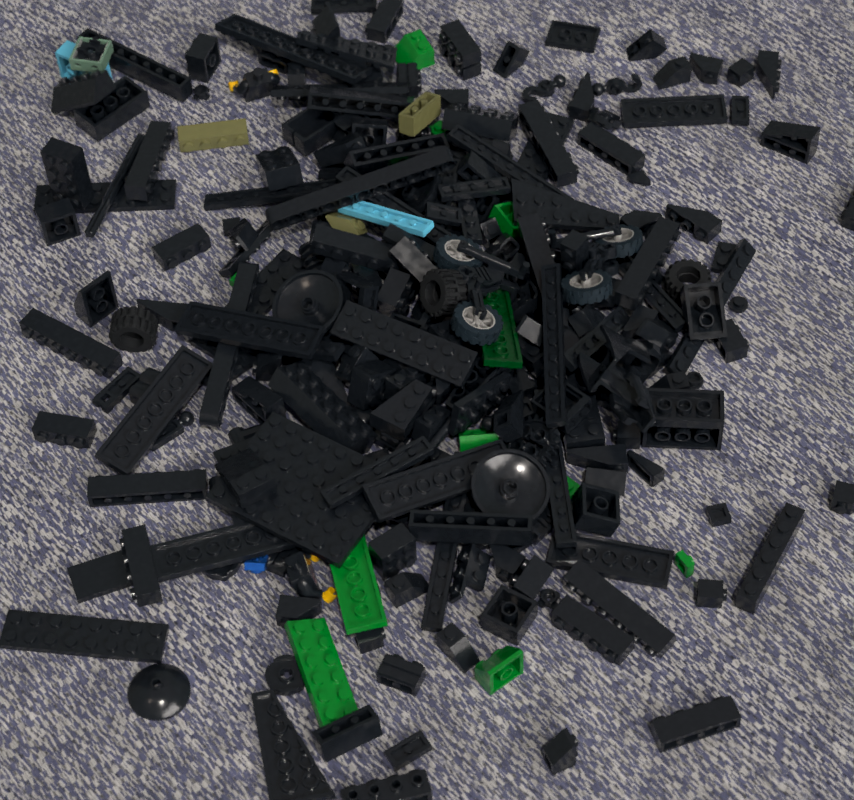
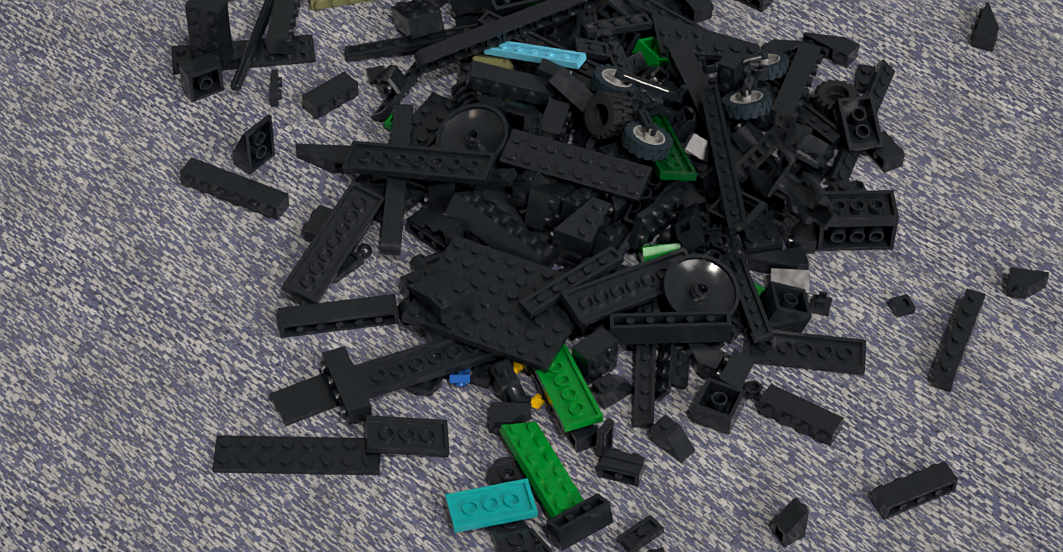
camera: 10 degrees left, 5 degrees down
(64, 430) = (242, 268): black brick -> none
(116, 390) = (288, 229): black plate -> none
(128, 240) = (275, 92): none -> black plate
(133, 329) = (298, 170): black tyre -> none
(159, 701) = (382, 508): black dish -> none
(192, 625) = (406, 436): none -> black plate
(261, 709) = (491, 505): none -> teal plate
(387, 642) = (604, 437): none -> black tile
(499, 669) = (718, 454): green slope -> none
(620, 609) = (823, 392): black brick -> none
(635, 507) = (821, 304): none -> black tile
(639, 178) = (770, 11): black tile -> none
(646, 469) = (825, 269): black slope -> none
(684, 563) = (878, 350): green plate -> none
(710, 593) = (907, 374): black brick -> none
(738, 304) = (887, 119): black plate -> none

